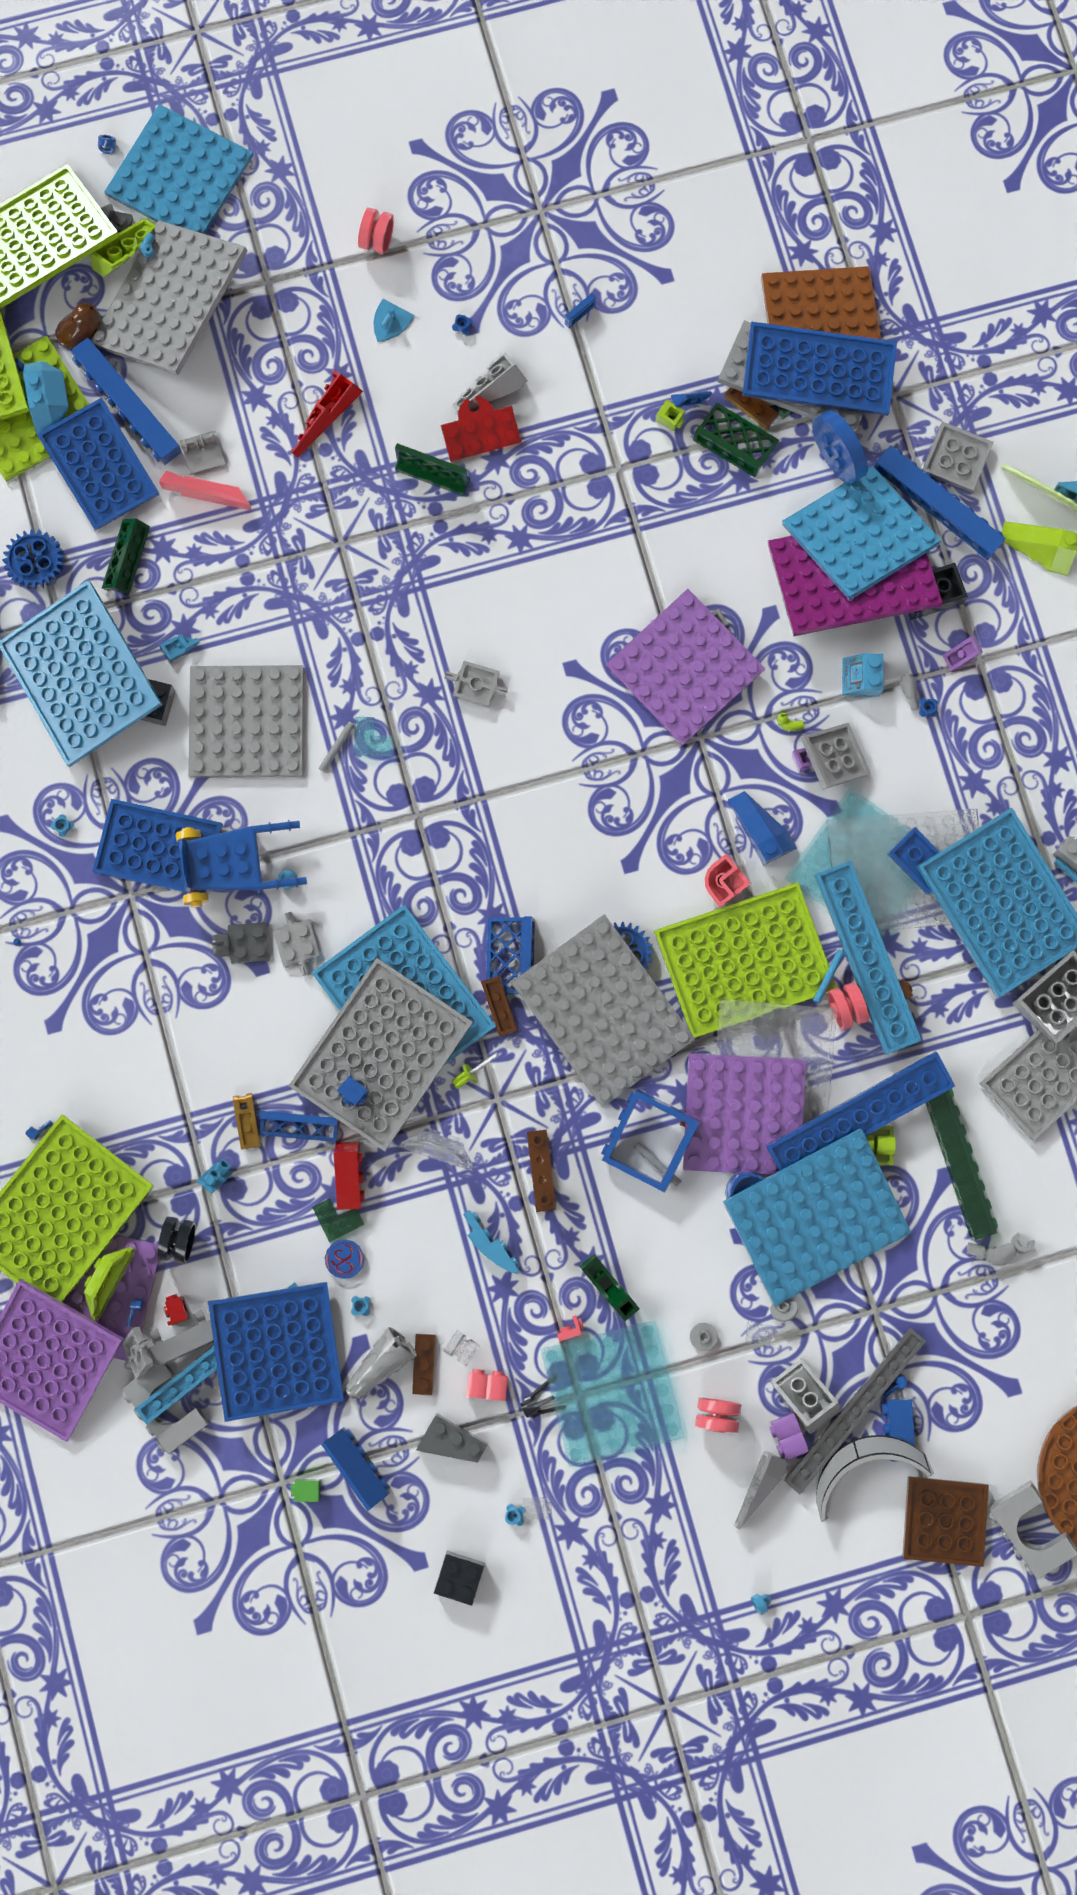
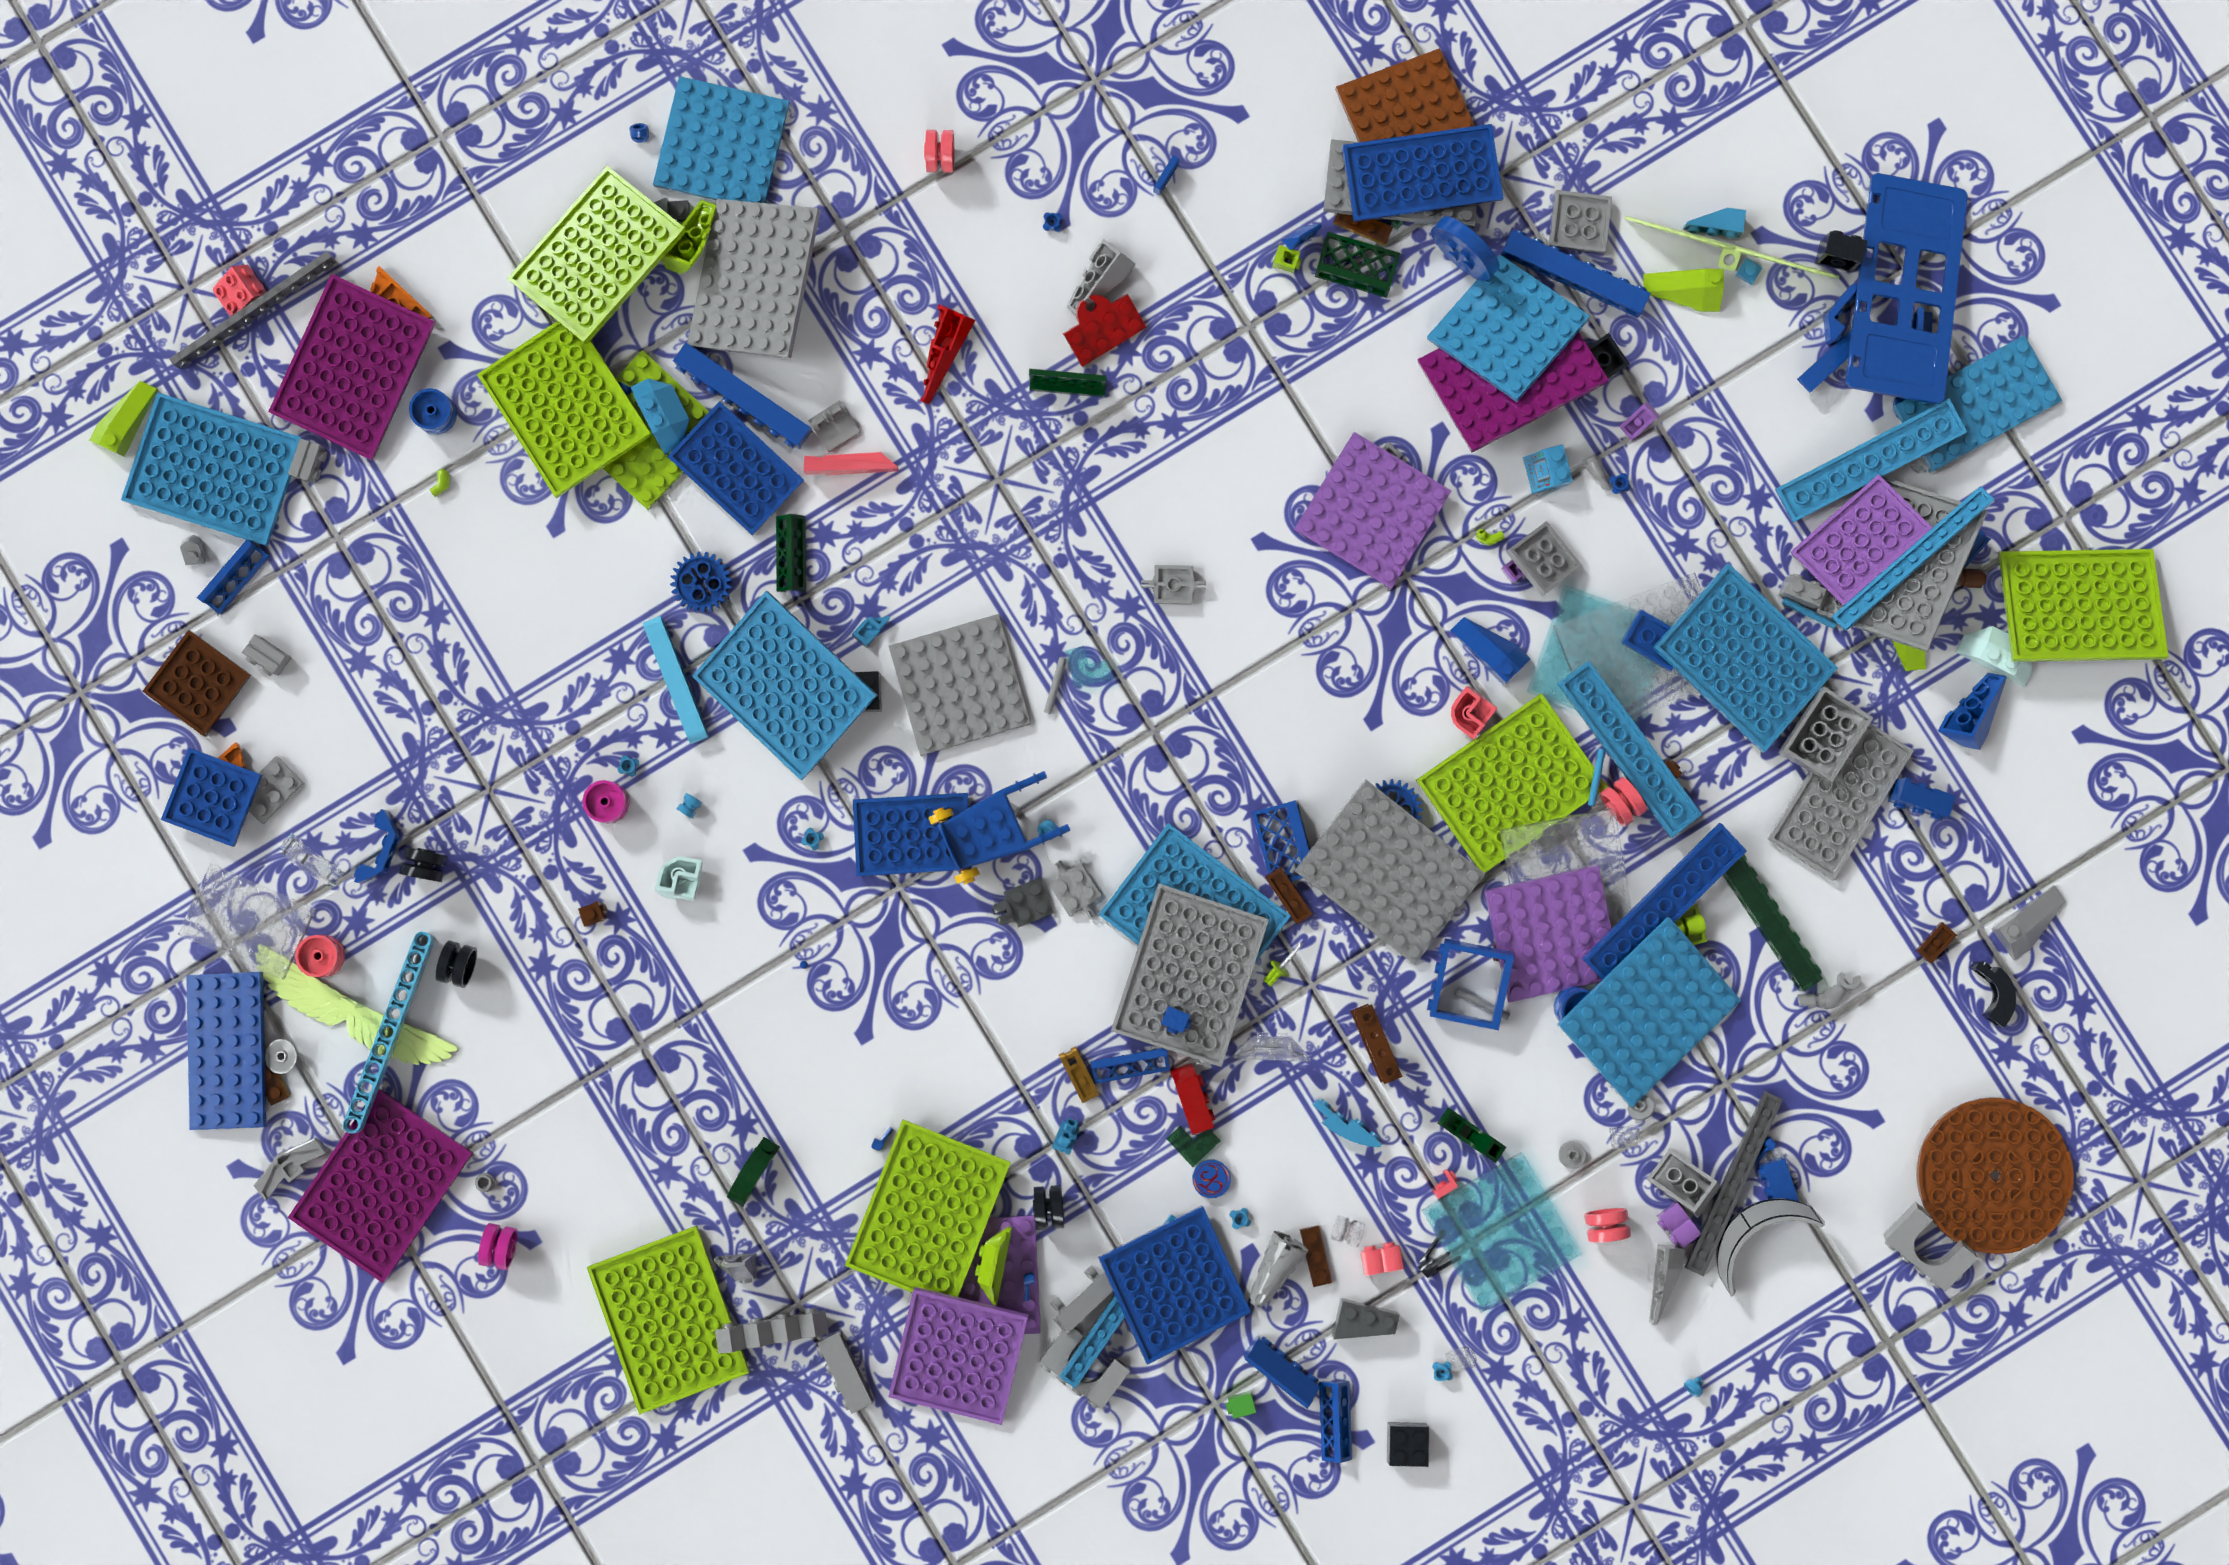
camera: 15 degrees left, 5 degrees up
(78, 326) = (671, 332): reddish brown piece -> none
(137, 1353) = (1046, 1324): light grey plate -> none
(146, 246) = (714, 231): dark azure arm -> none
(176, 1309) = (1066, 1272): red brick -> none
(390, 320) = (979, 237): dark azure shield -> none
(398, 1535) = (1339, 1422): none -> blue fence
(945, 1521) = (1845, 1261): reddish brown plate -> none

